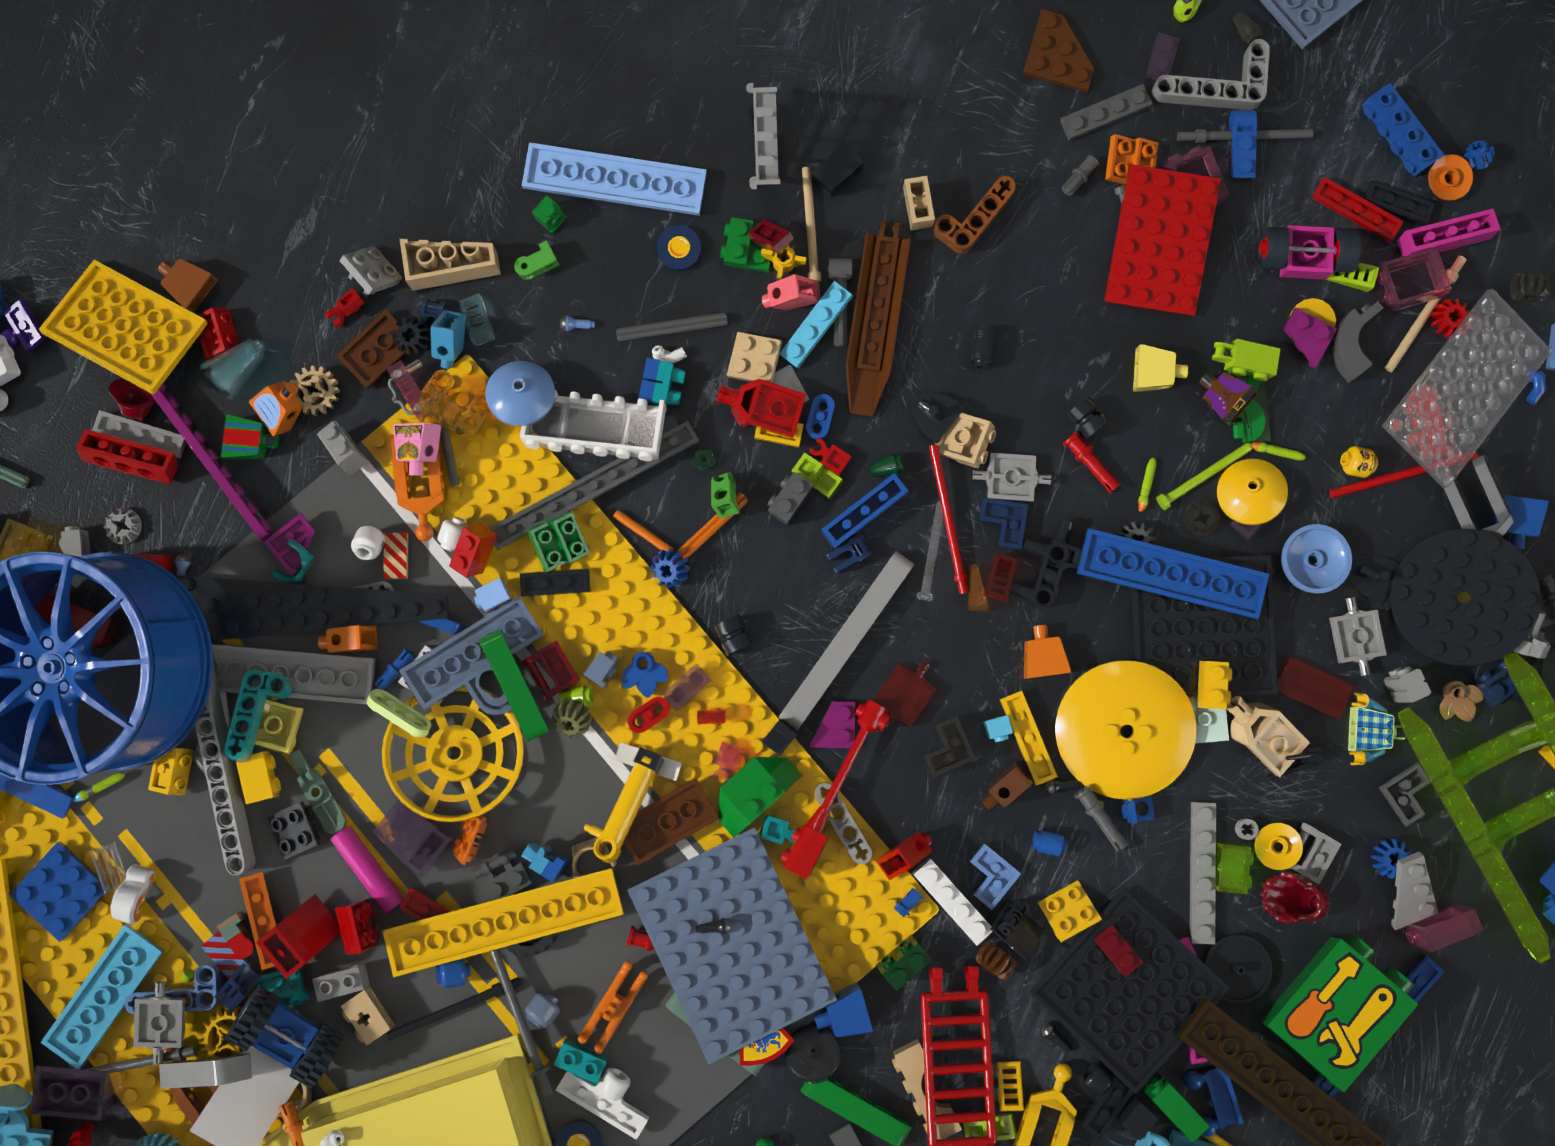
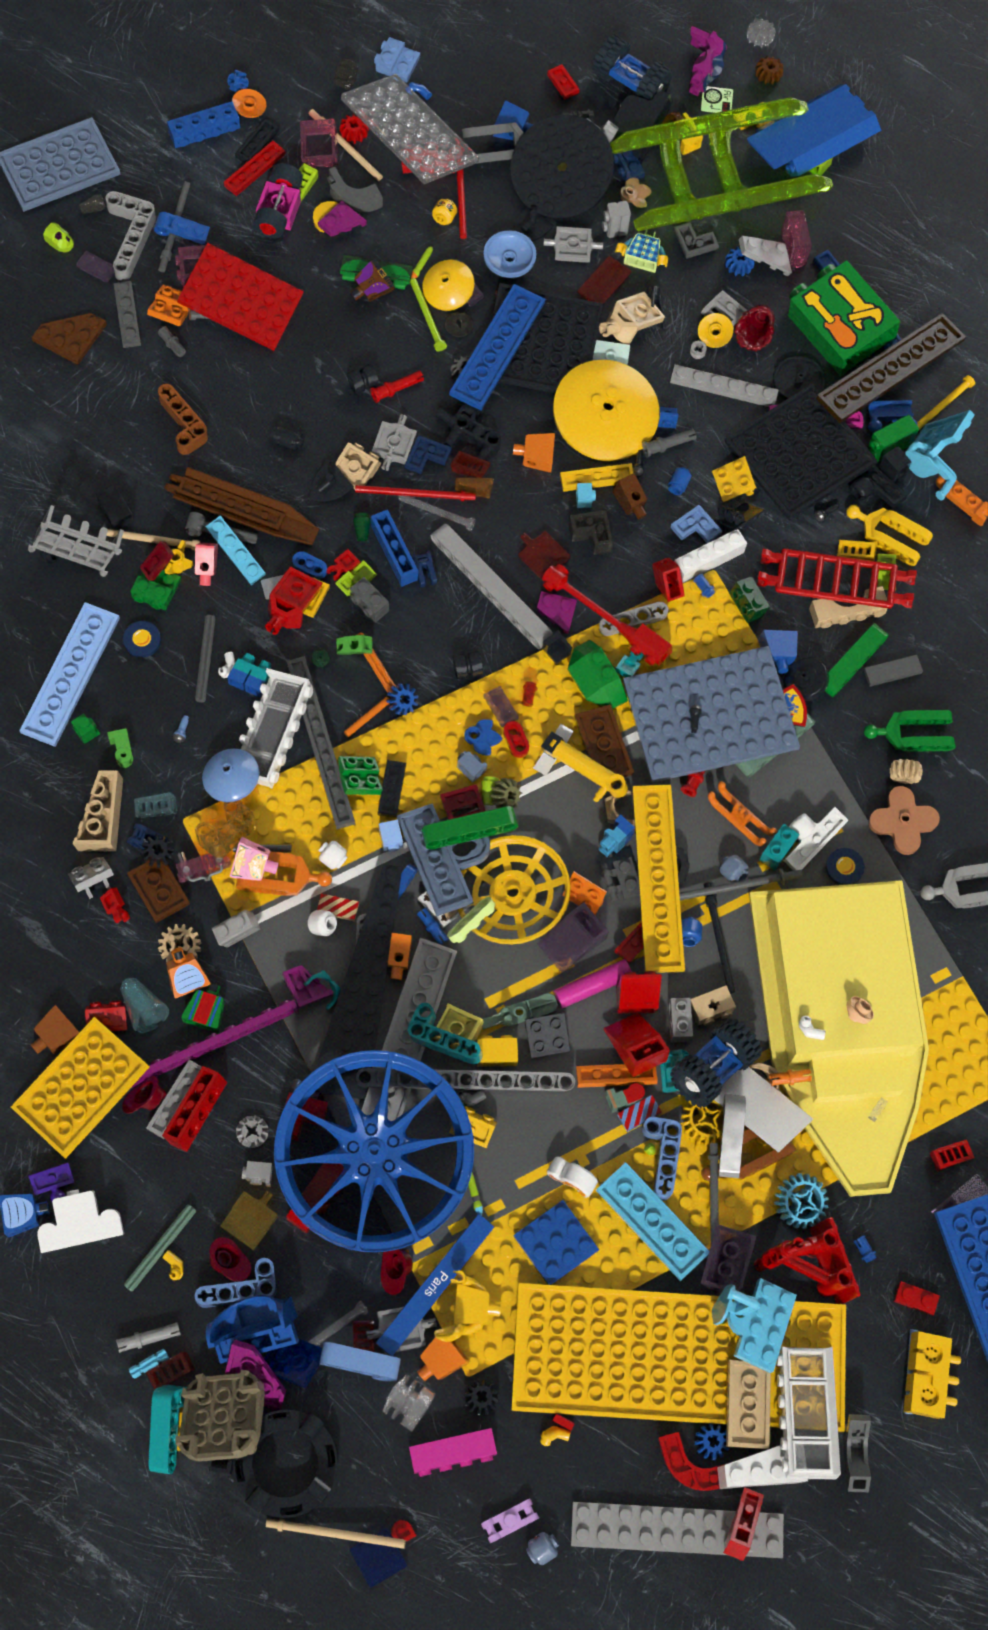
camera: 90 degrees left, 15 degrees down
(94, 853) = (548, 1194): clear tile -> none
(159, 1022) = (684, 1166): light grey plate -> none
(238, 987) = (668, 1101): dark blue hips -> none
(448, 337) = (167, 823): dark azure torso -> none
(473, 550) = (351, 837): red brick -> none
(727, 758) = (565, 690): clear pink plate -> none
(754, 358) = (248, 602): tan plate -> none
(918, 203) = (160, 454): tan brick -> none
(996, 961) = (761, 535): reddish brown gear -> none
(1117, 950) = (770, 450): dark red plate -> none
(1147, 483) = (435, 359): lime piece -> none
(1156, 369) = (337, 326): light yellow torso -> none
(1213, 685) = (587, 340): yellow brick -> none
(1233, 868) = (725, 363): clear neon green brick -> none
(1248, 359) = (348, 261): lime brick -> none
(1450, 233) = (291, 113): dark pink brick -> none

